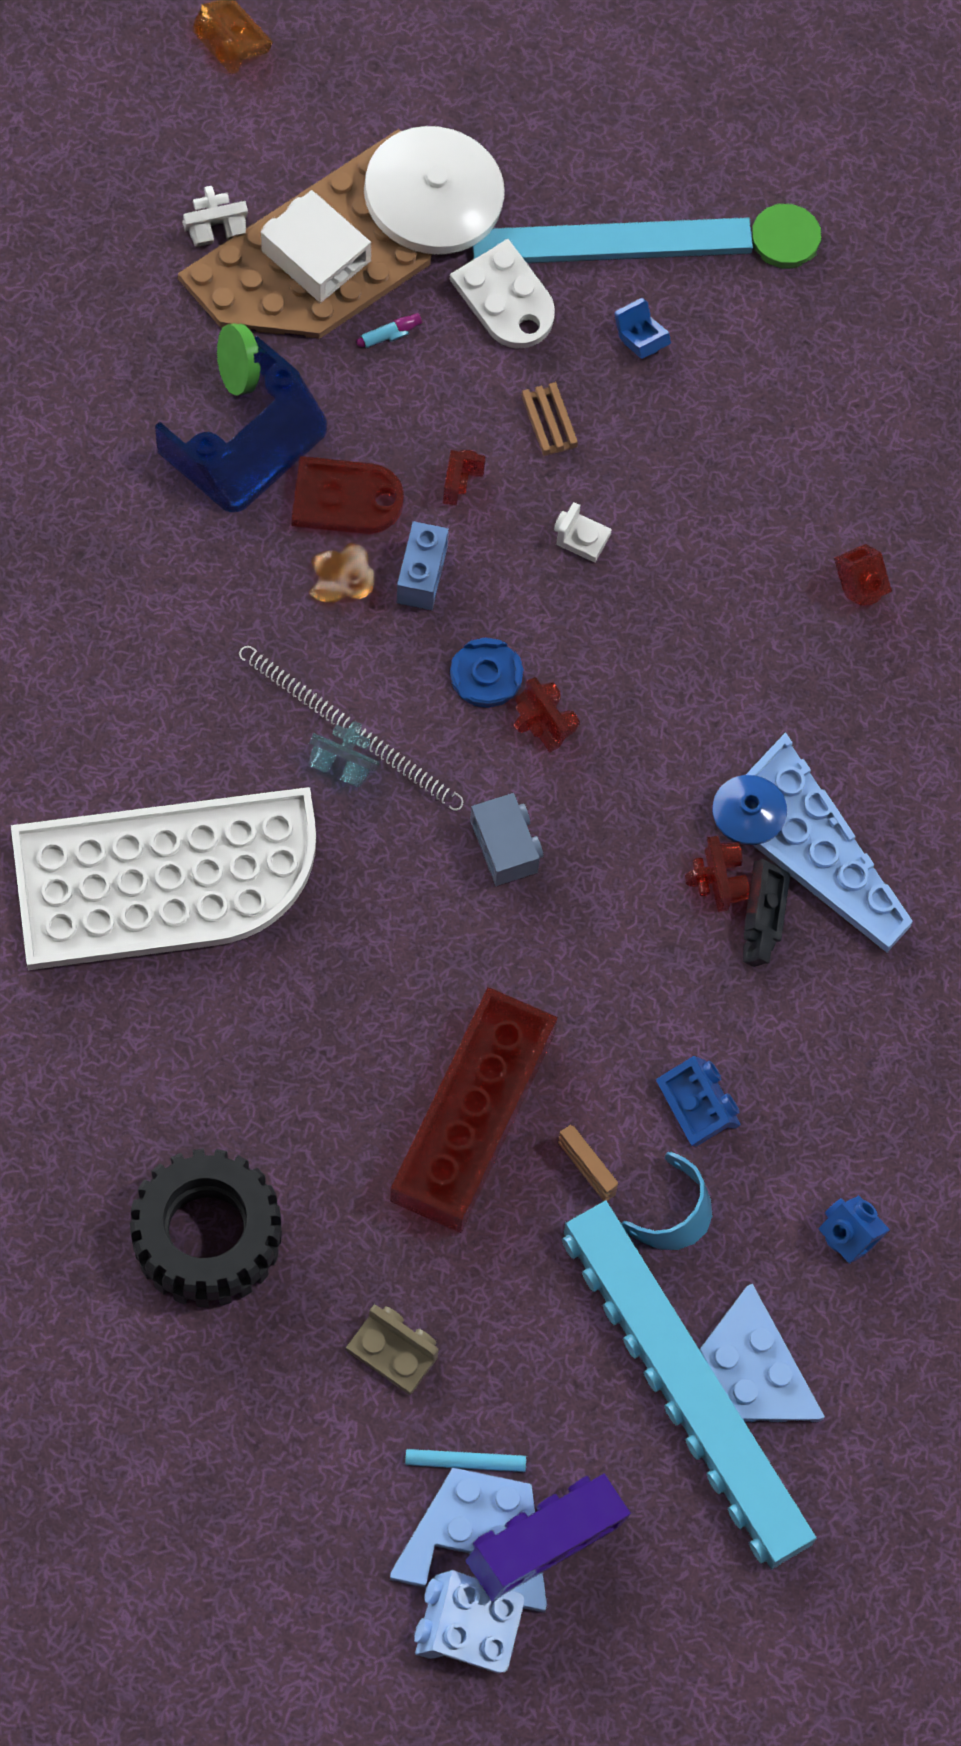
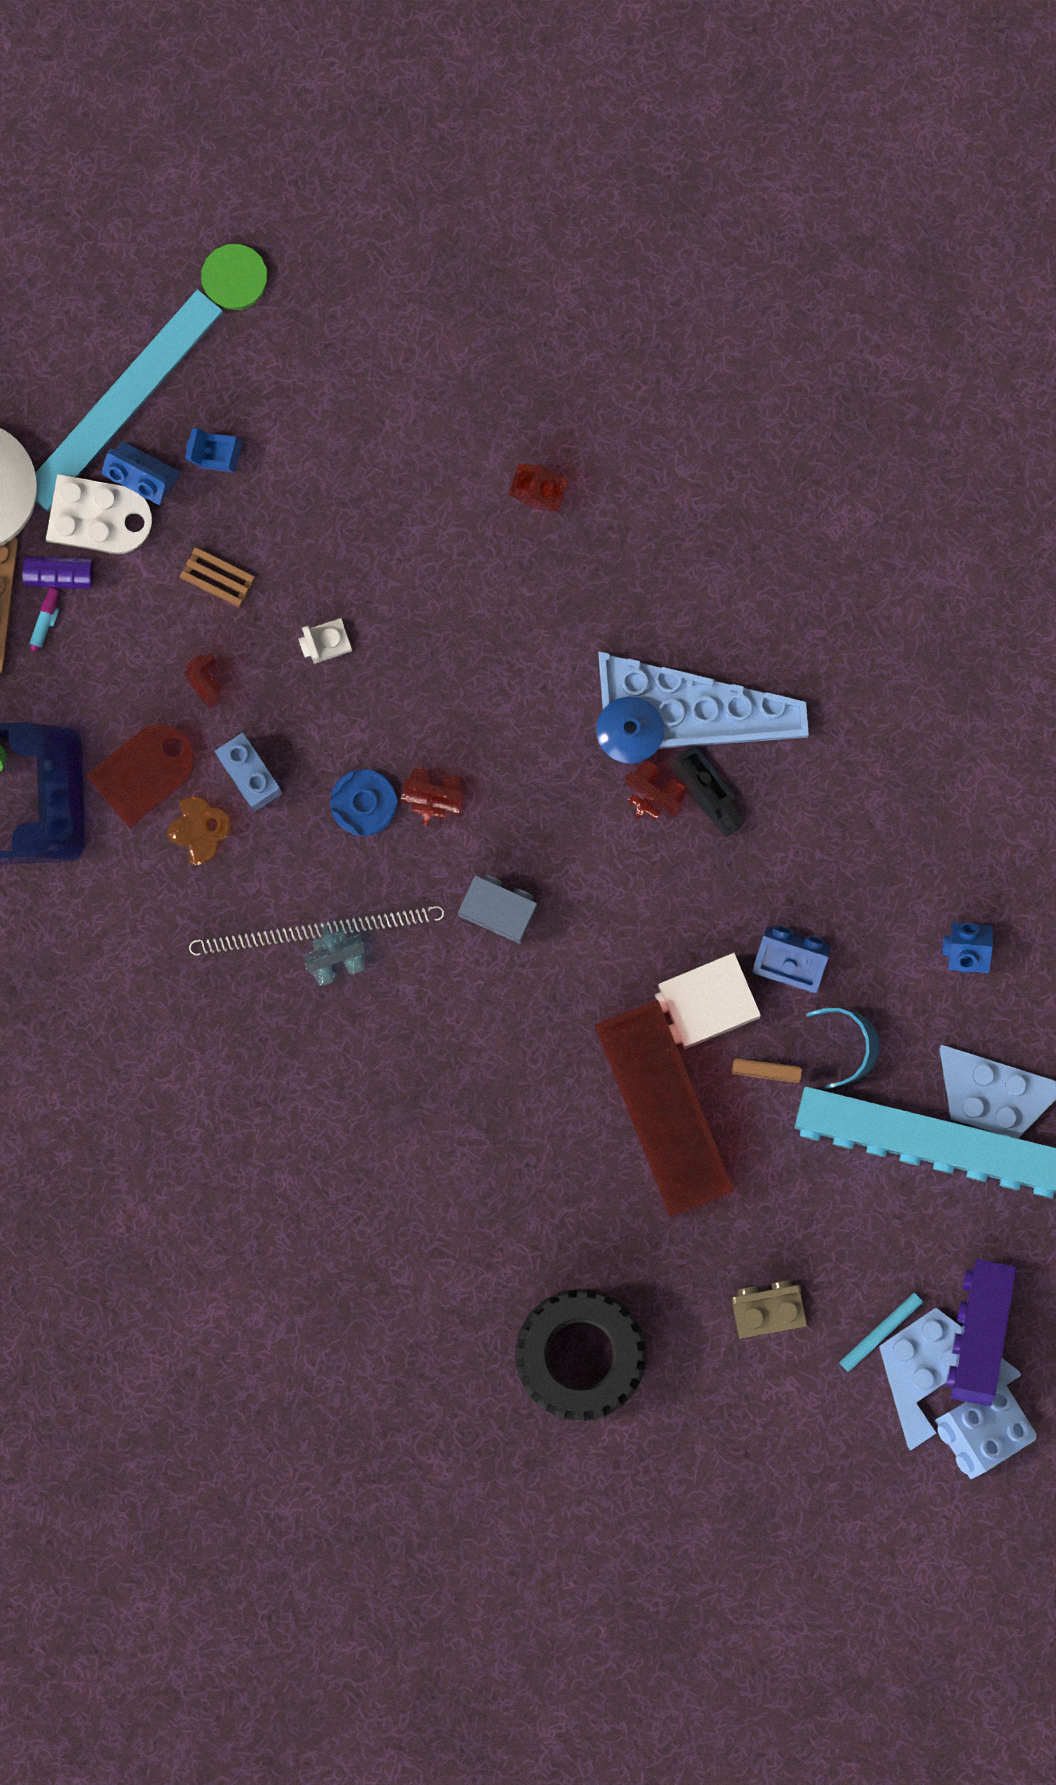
camera: 35 degrees left, 15 degrees up
(161, 876) = (305, 1156): white plate -> none
(435, 306) = (58, 572): none -> dark purple axle
(570, 294) = (140, 472): none -> blue bracket
(596, 1066) = (707, 1001): none -> white brick

